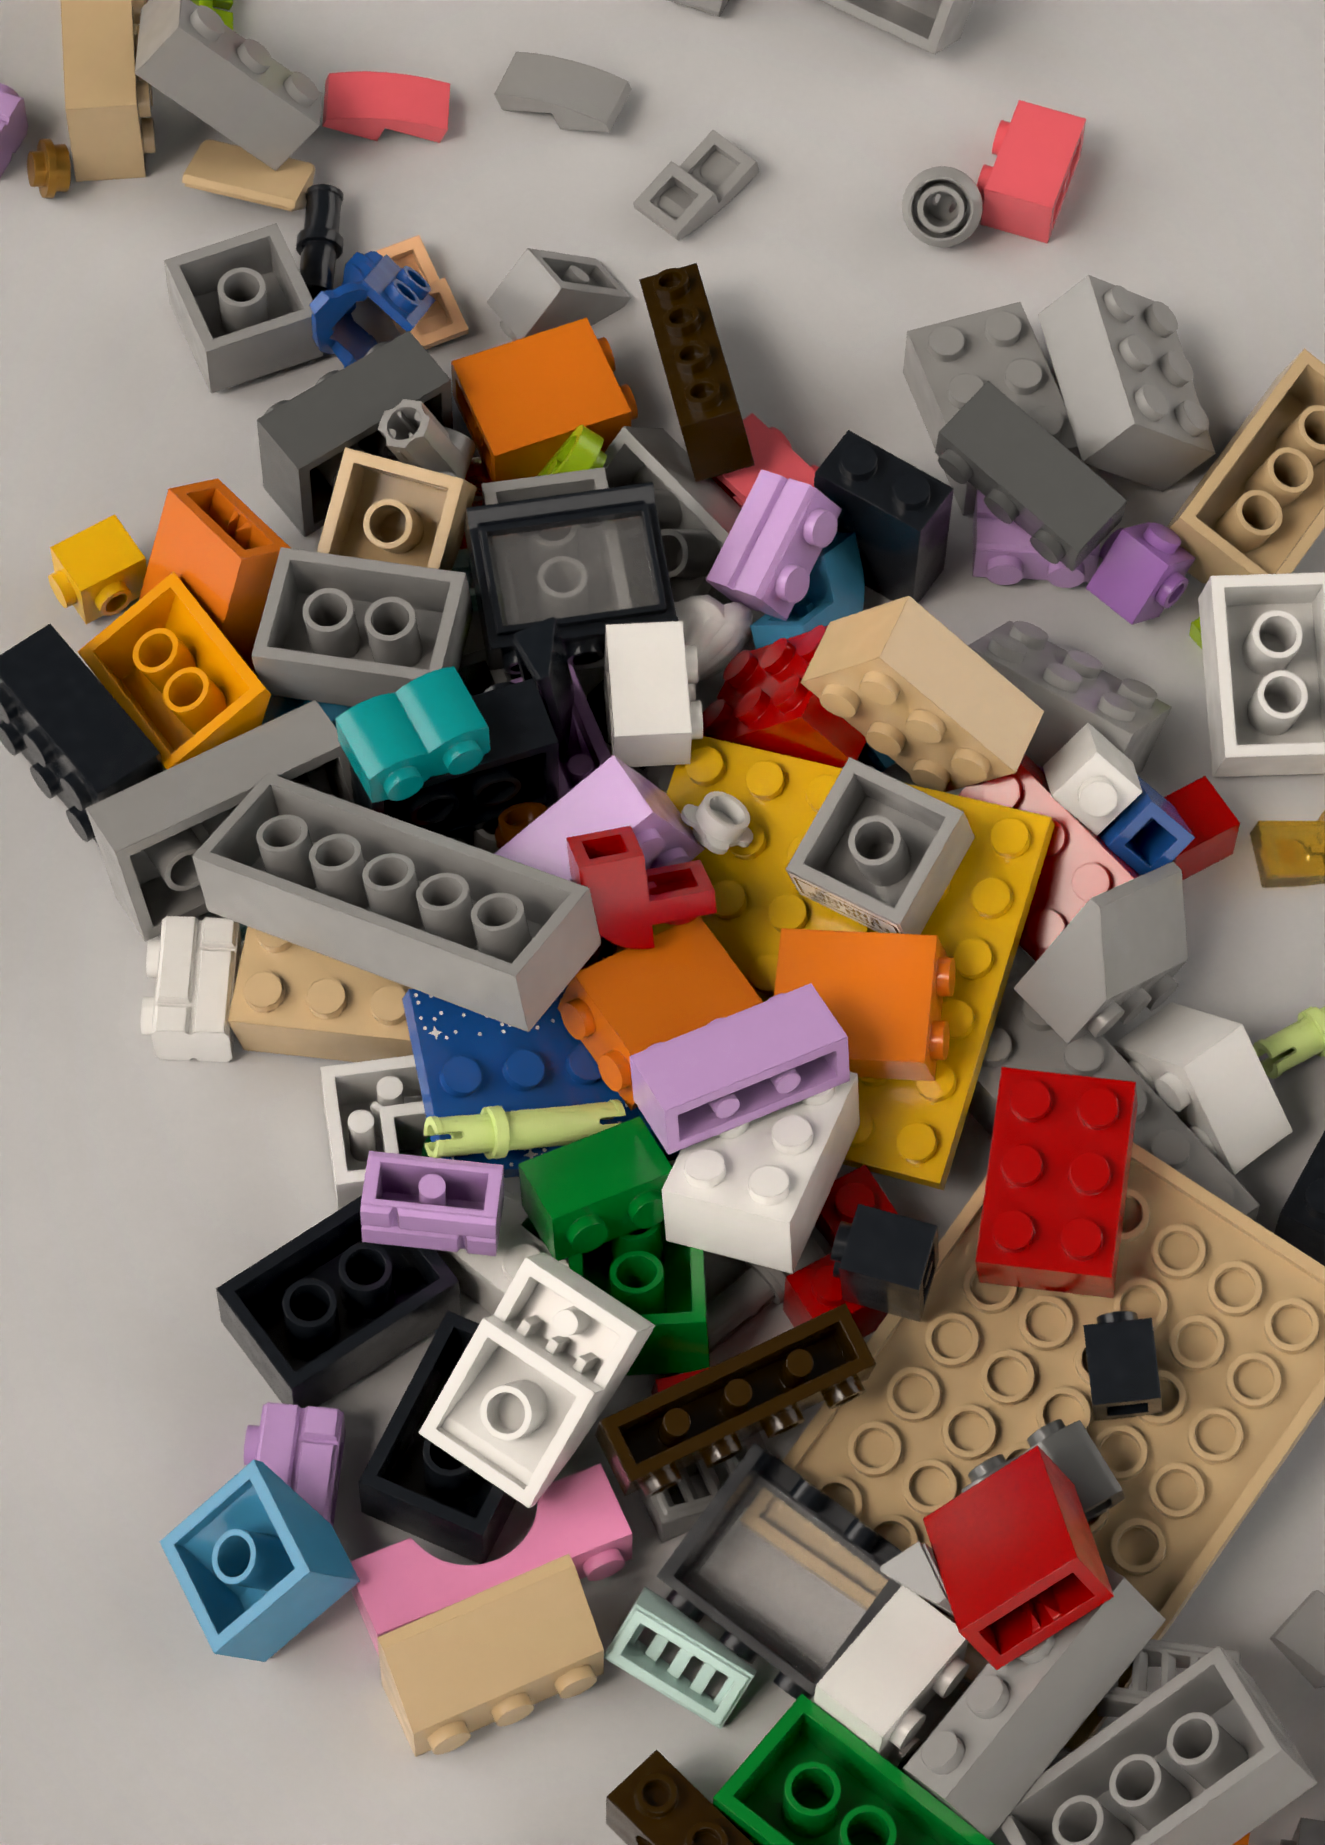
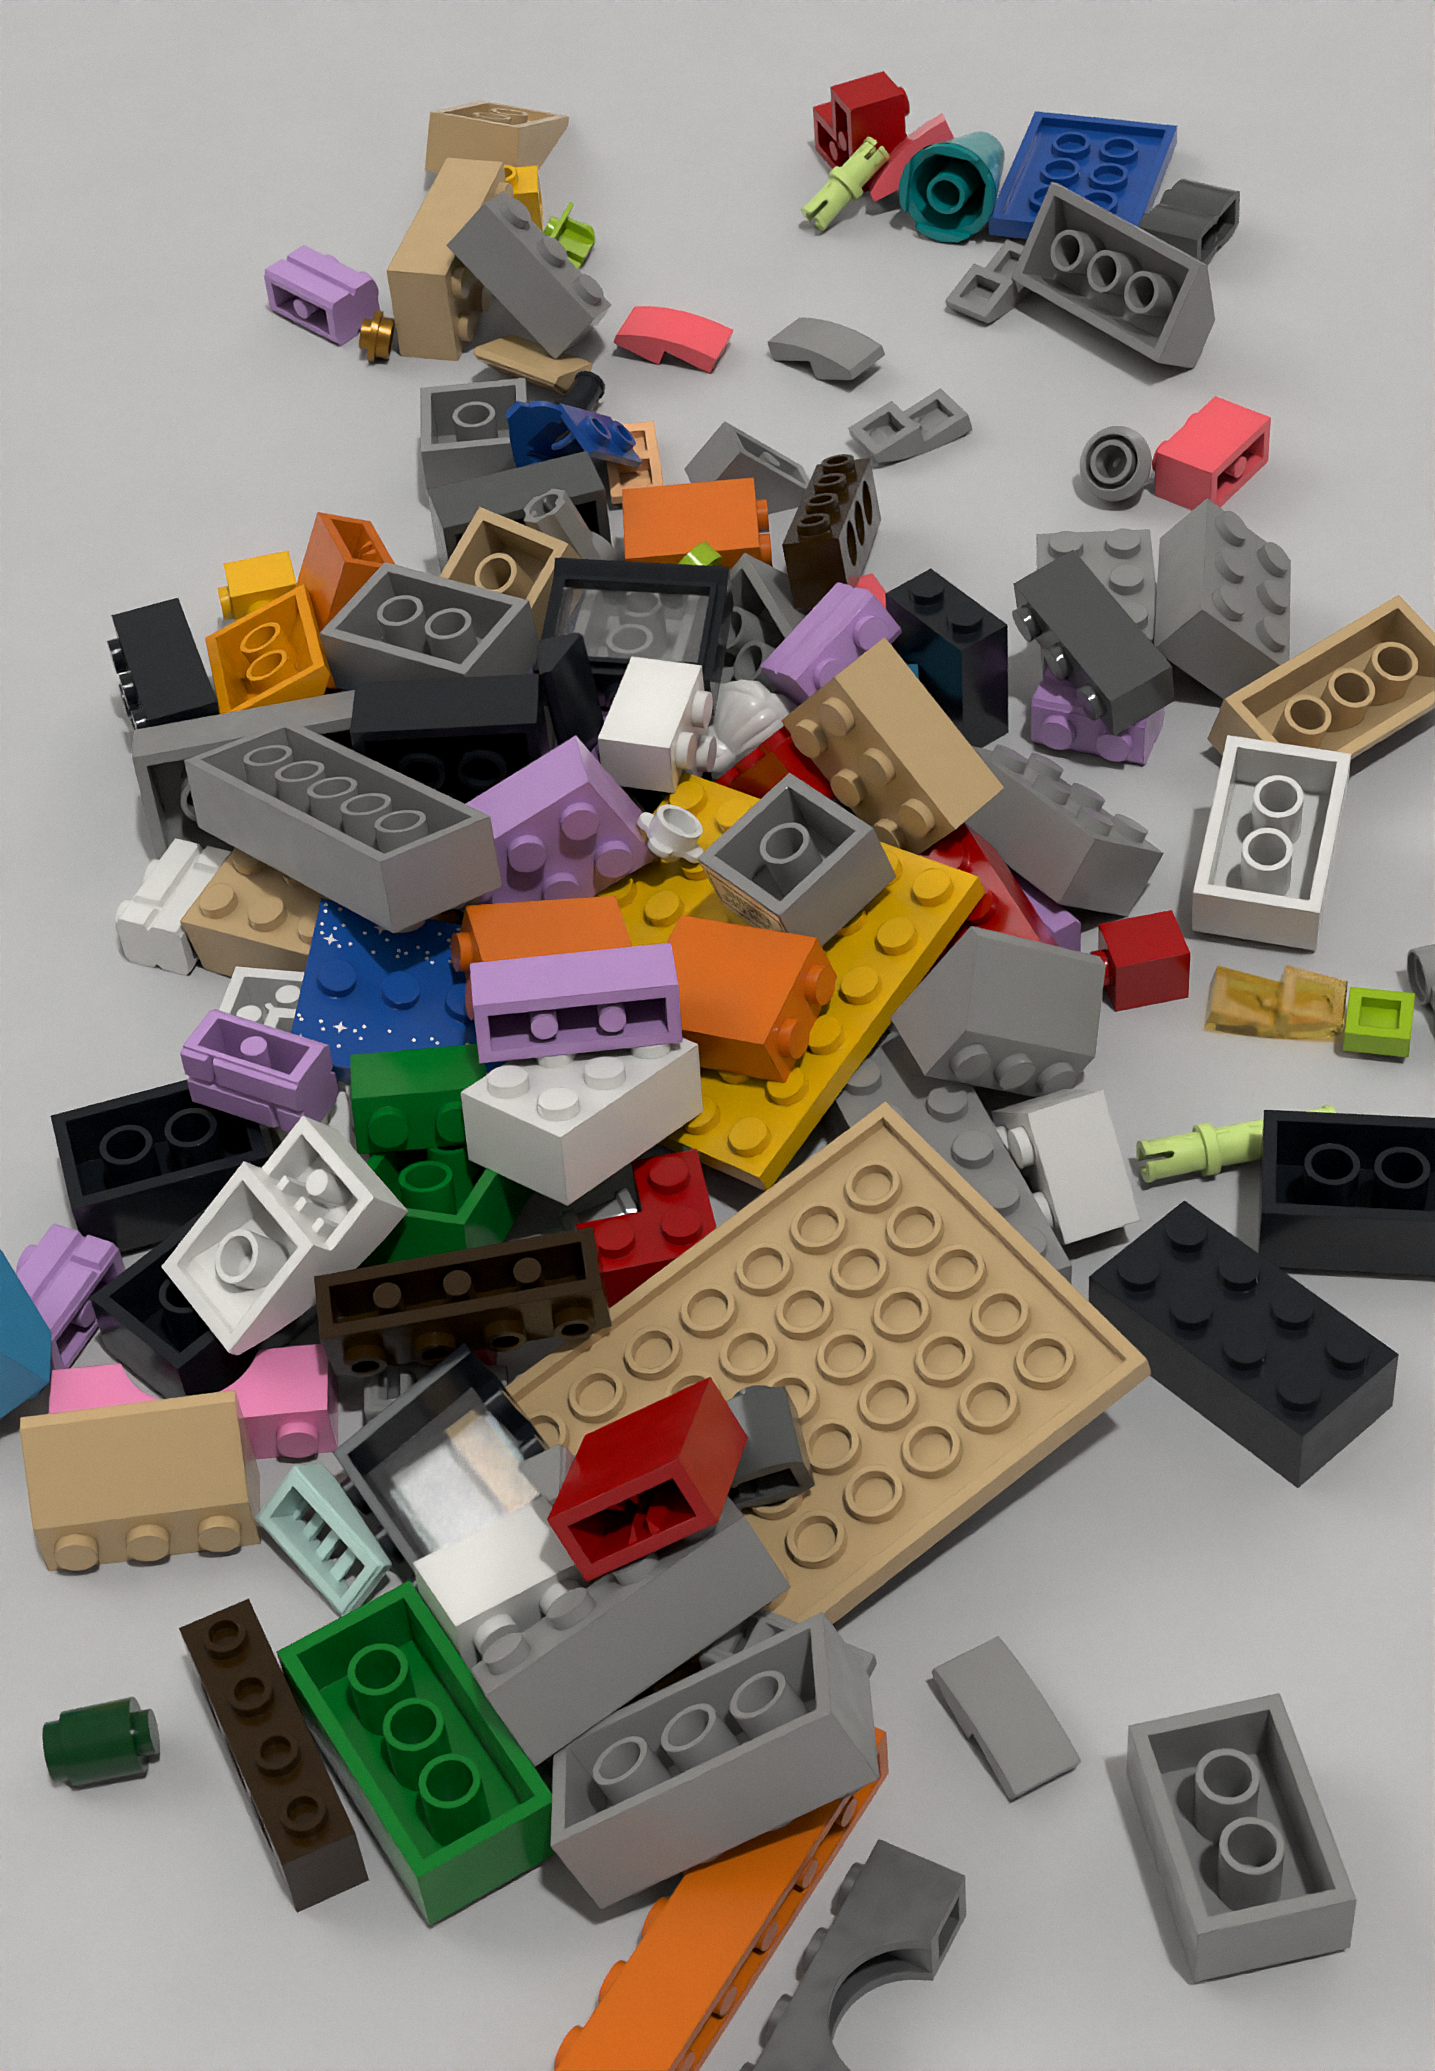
camera: 25 degrees right, 15 degrees down
(413, 735) = (401, 683): teal brick -> none
(499, 1131) = (360, 1027): yellowish green pin -> none
(630, 897) = (533, 847): red brick -> none
(886, 1261) = (654, 1205): black brick -> none
(1057, 1182) = (850, 1173): red brick -> none
(1092, 779) = (1040, 866): white brick -> none
(1122, 1366) = (851, 1355): black brick -> none
(1141, 571) = (1180, 749): medium lavender brick -> none
(1147, 832) = (1081, 919): blue brick -> none

